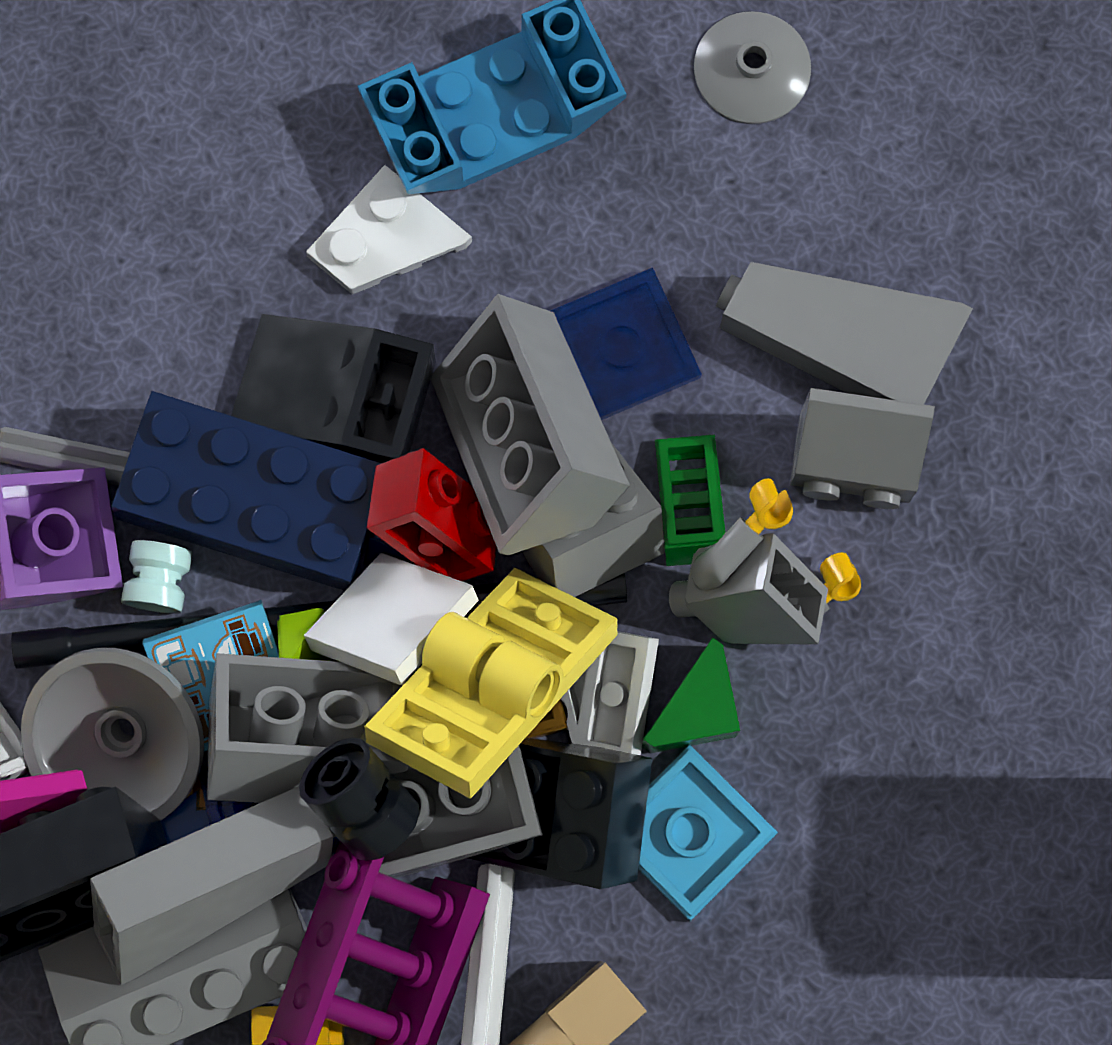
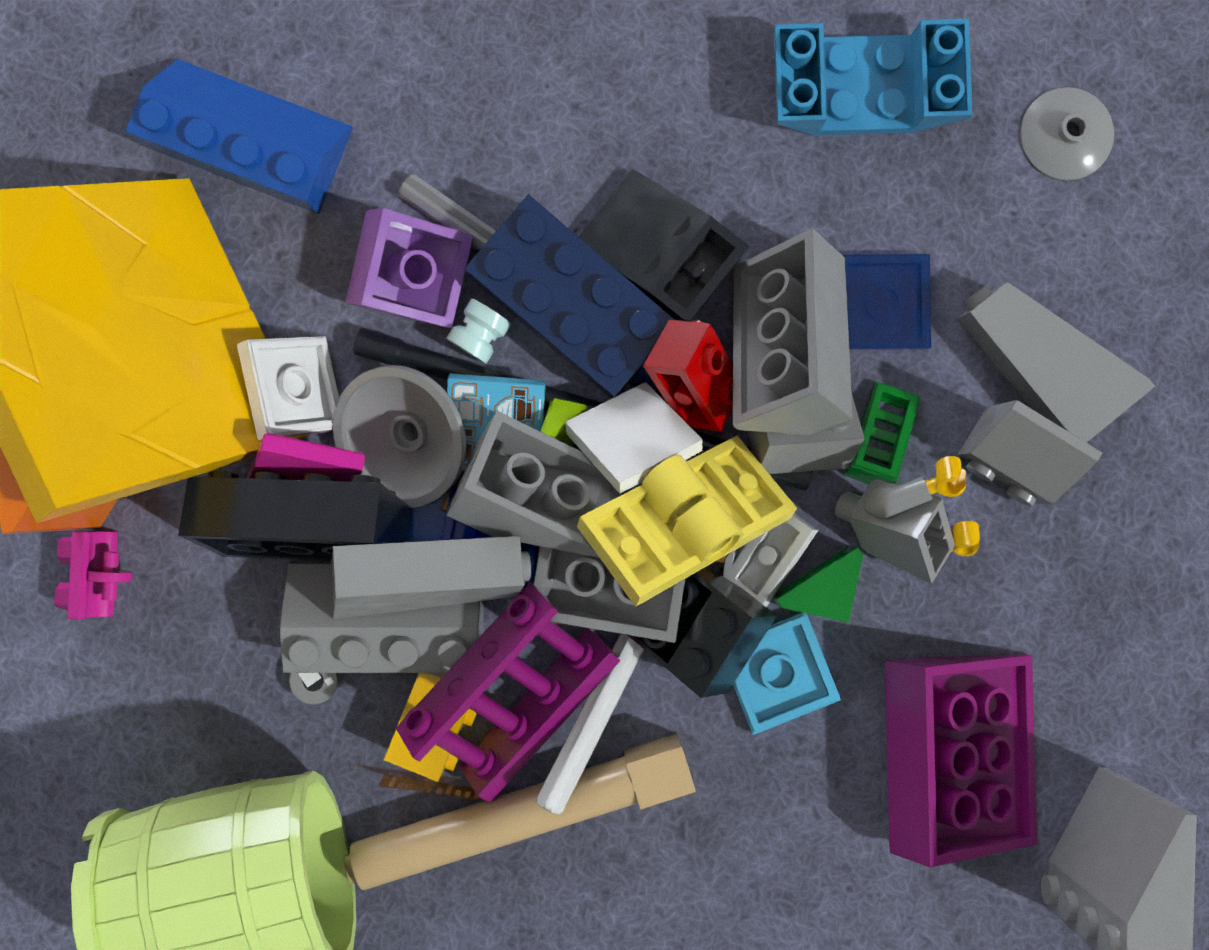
camera: 25 degrees right, 10 degrees up
(359, 799) = (554, 568): black wheel -> none
(384, 235) = (745, 147): white wing -> none
(948, 835) = (960, 756): none -> magenta slope

